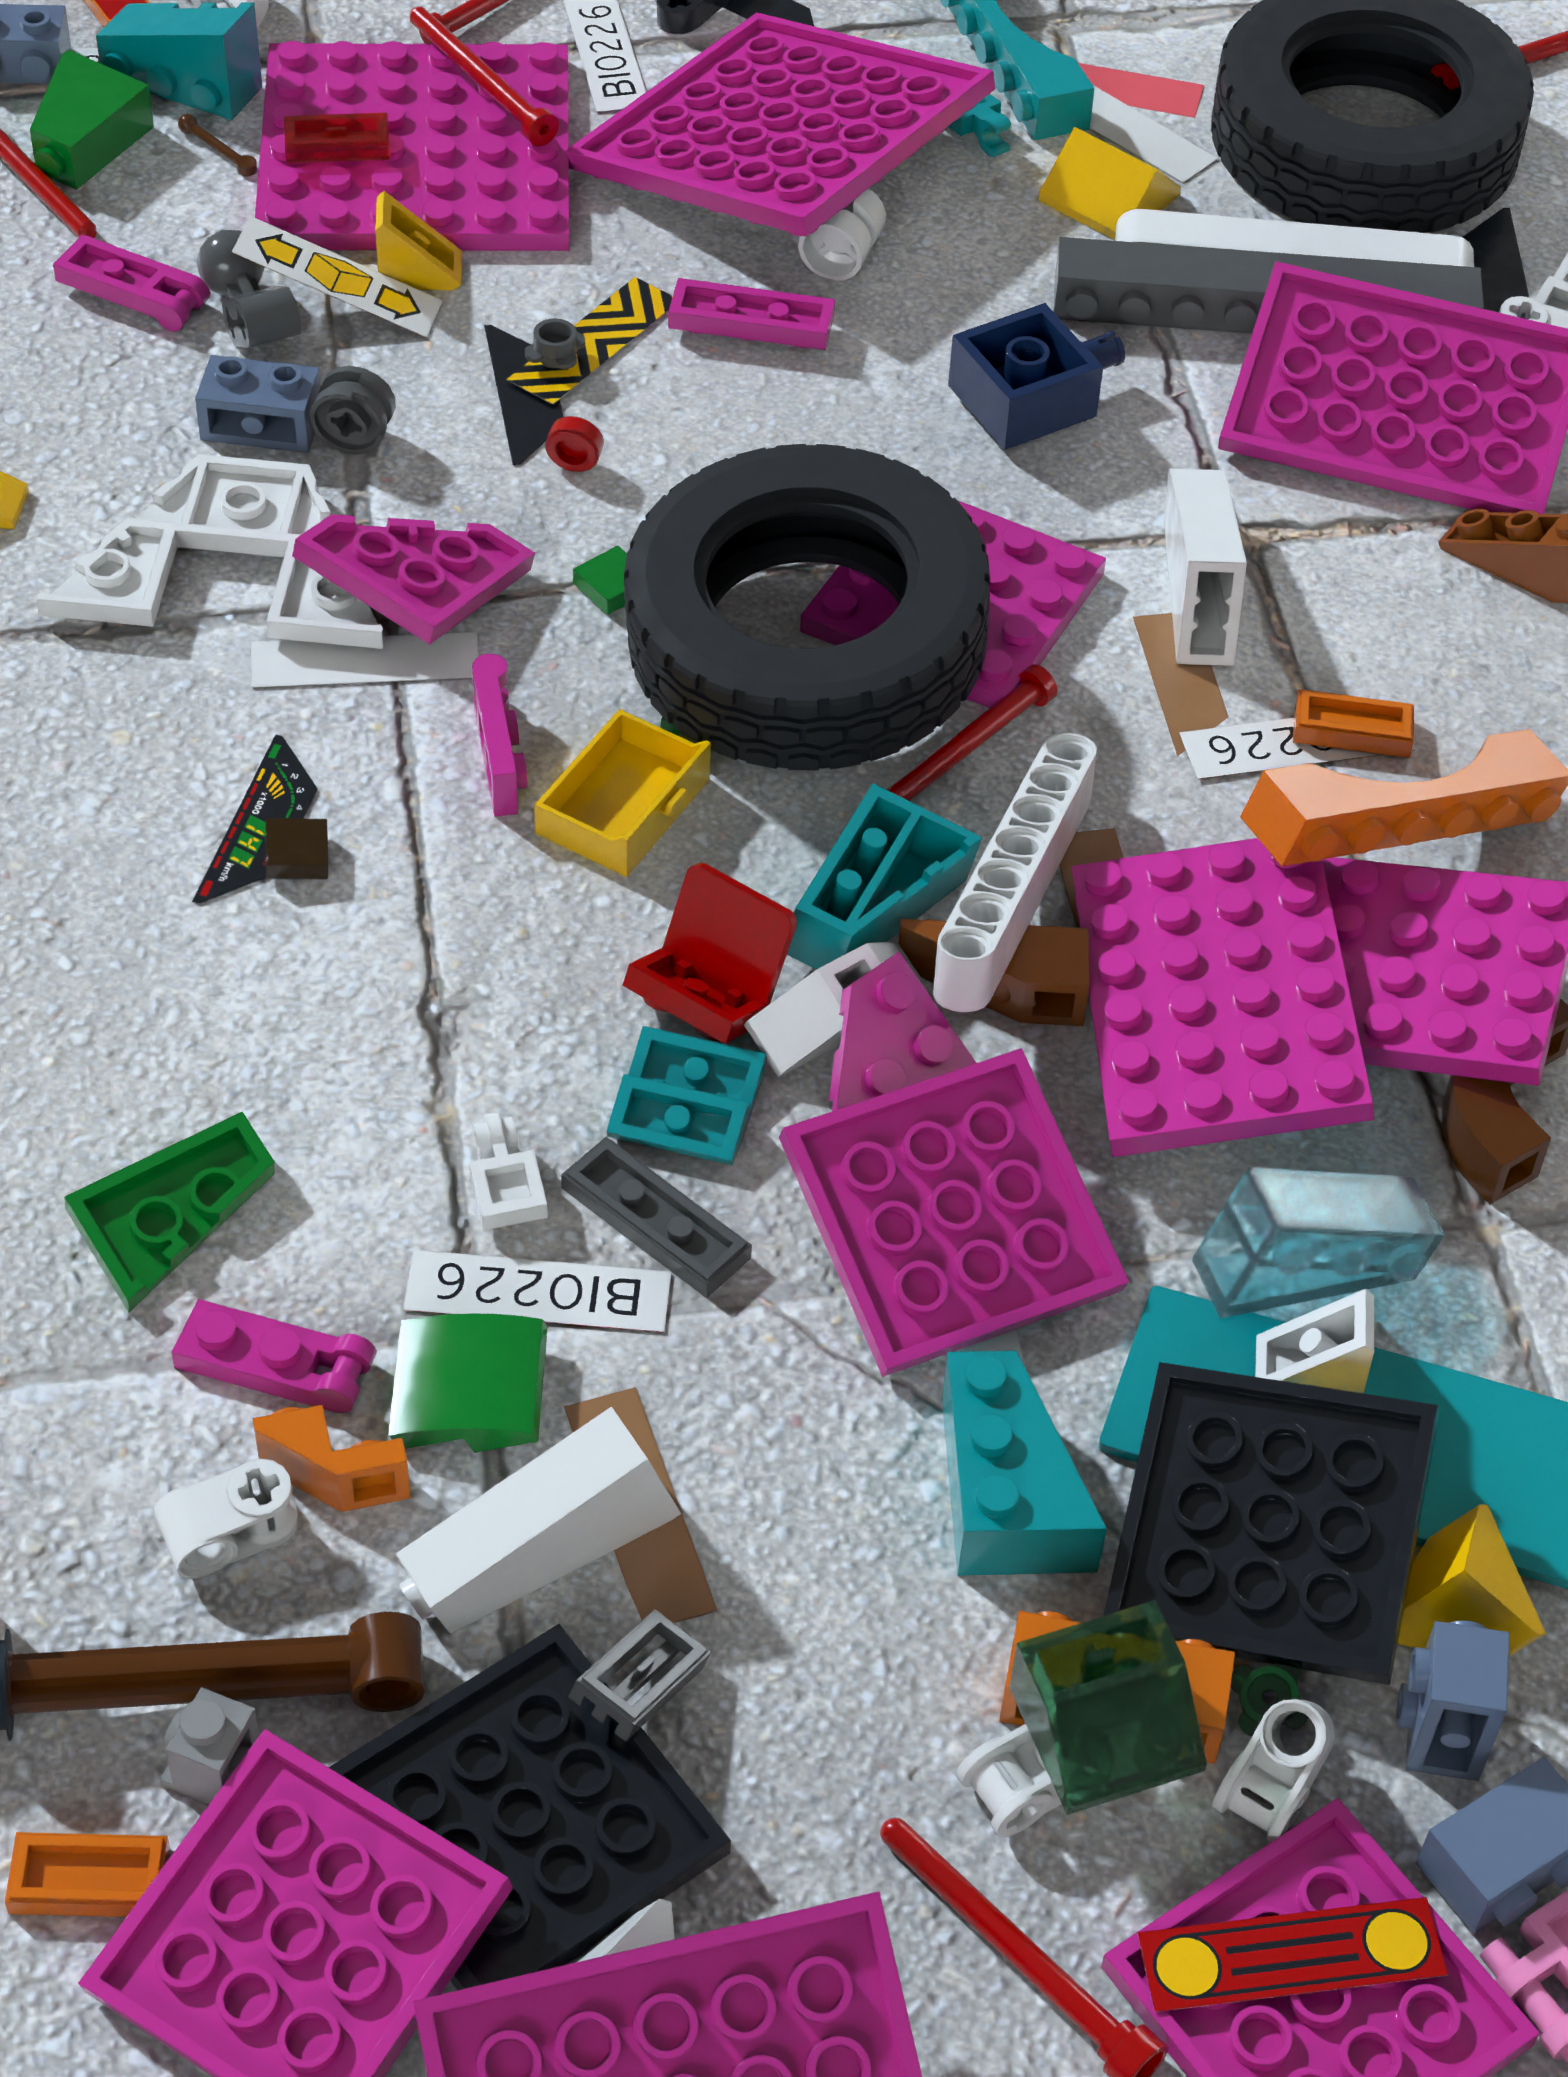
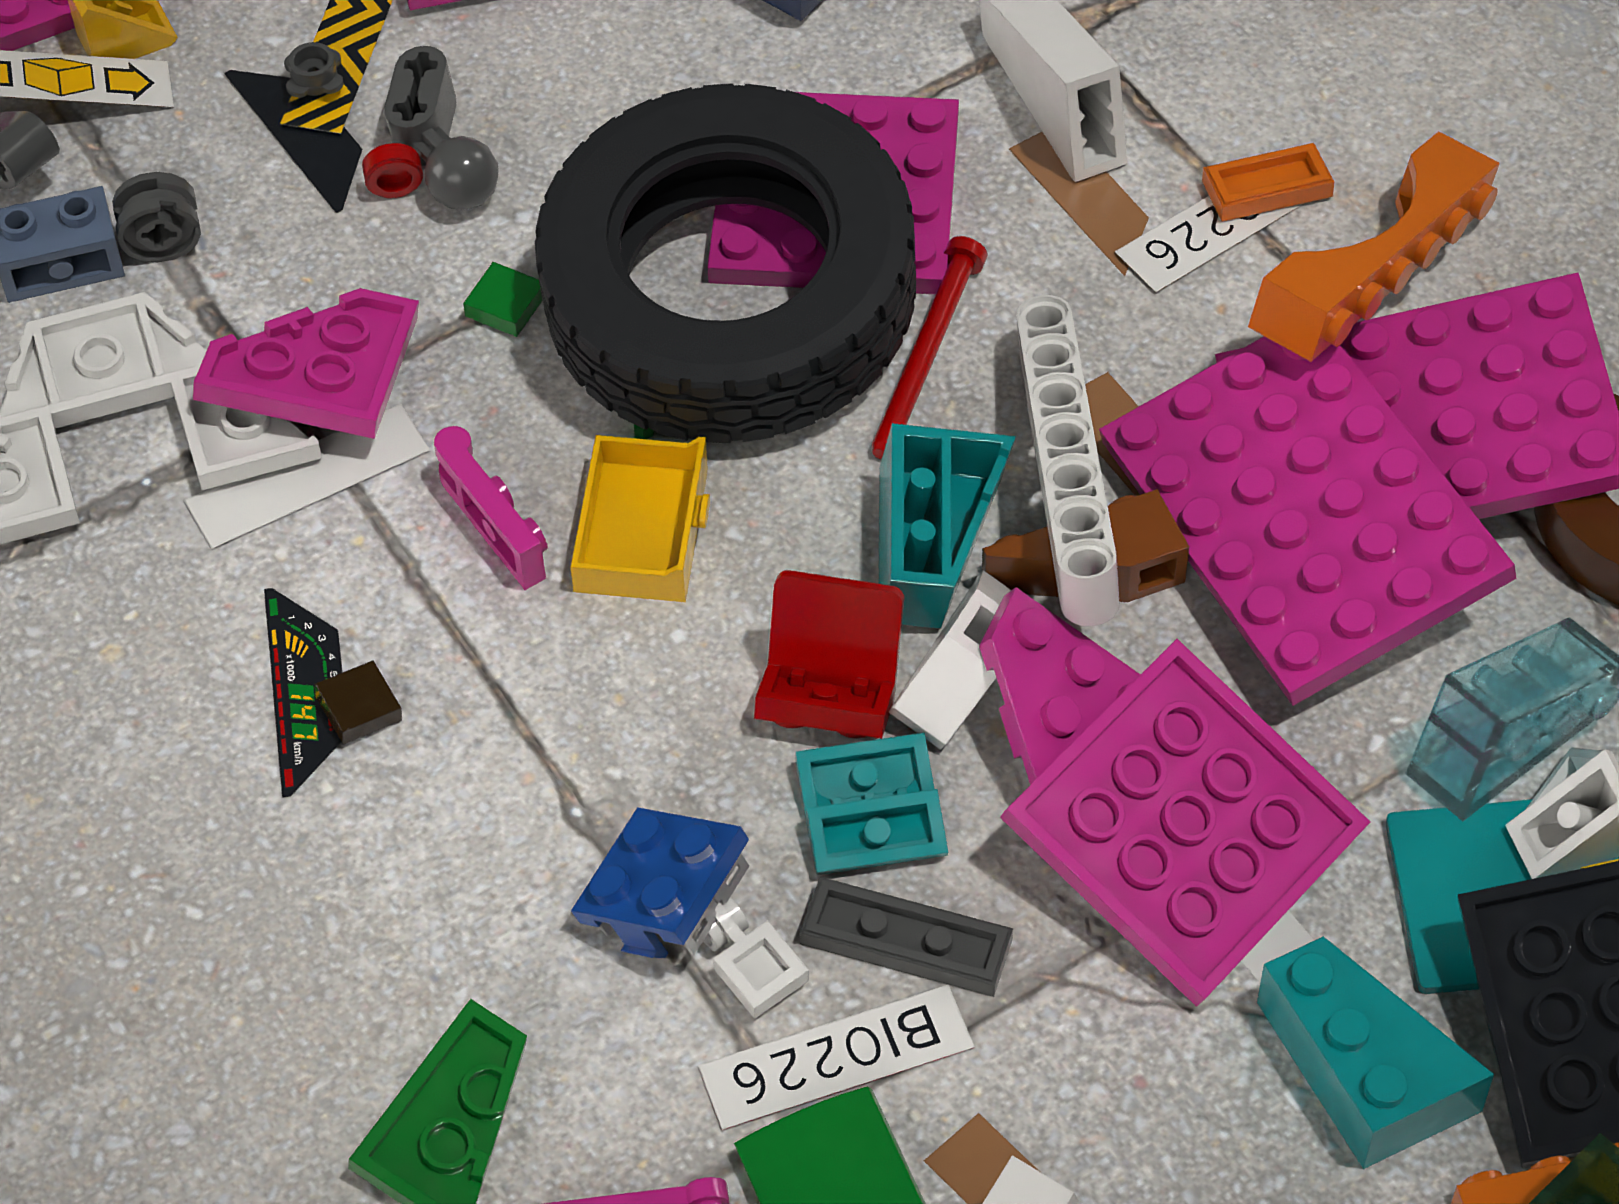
camera: 20 degrees left, 5 degrees up
(458, 1080) = (663, 881): none -> blue piece
(625, 409) = (421, 114): none -> dark grey beam

